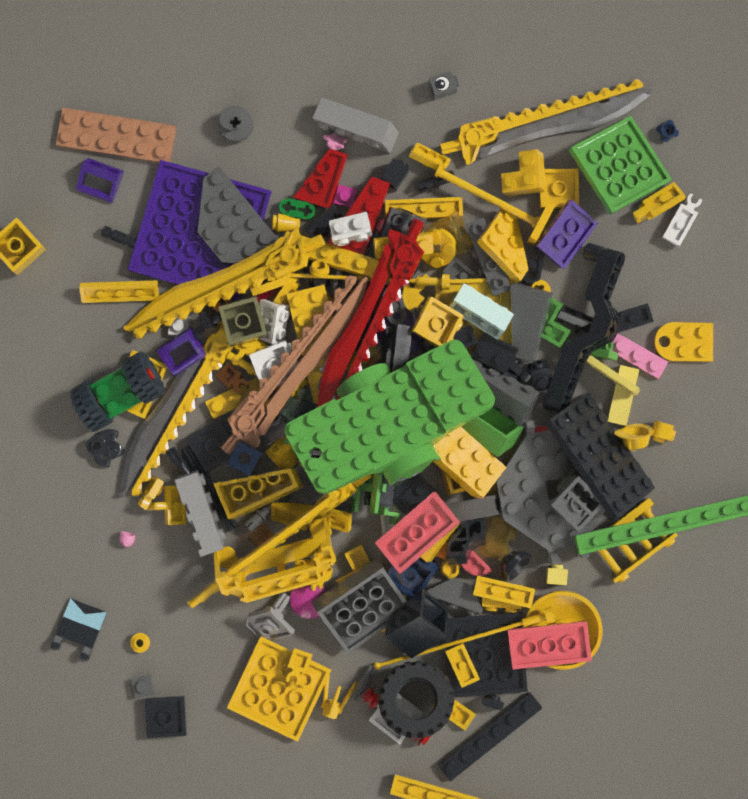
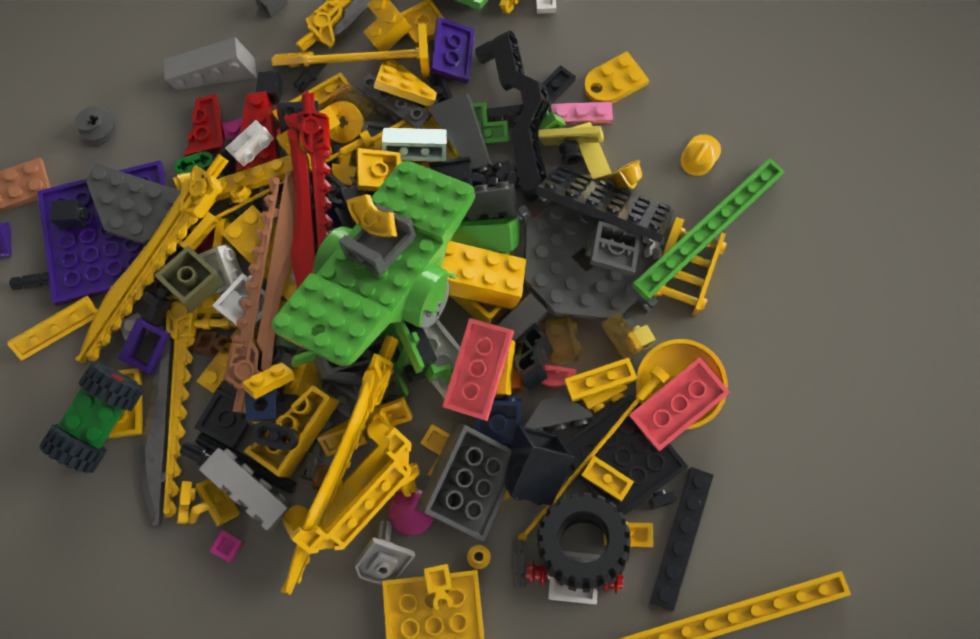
camera: 30 degrees left, 15 degrees down
(108, 447) = (116, 486): black plate -> none
(126, 538) = (184, 567): bright pink hinge -> none
(164, 543) = (226, 546): none -> dark pink plate
(177, 202) = (69, 214): none -> black brick
(243, 491) = (276, 437): none -> black plate
(260, 442) = (268, 380): none -> yellow plate
(331, 708) = (502, 611): yellow plant -> none
(334, 141) = (198, 92): bright pink plate -> none
(341, 655) = (478, 564): none -> yellow plate
(399, 404) = (379, 252): none -> dark grey panel
(402, 384) = (370, 218): none -> yellow tile
(411, 493) = (448, 342): black plate -> none
(449, 571) = (534, 396): yellow plate -> none
(514, 564) = (593, 350): black piece -> none
(542, 568) = (621, 336): none -> clear yellow bracket
(604, 387) = (570, 152): none -> black wheel
(663, 432) = (648, 158): yellow plate -> none
(710, 452) = (700, 155): none -> yellow piece

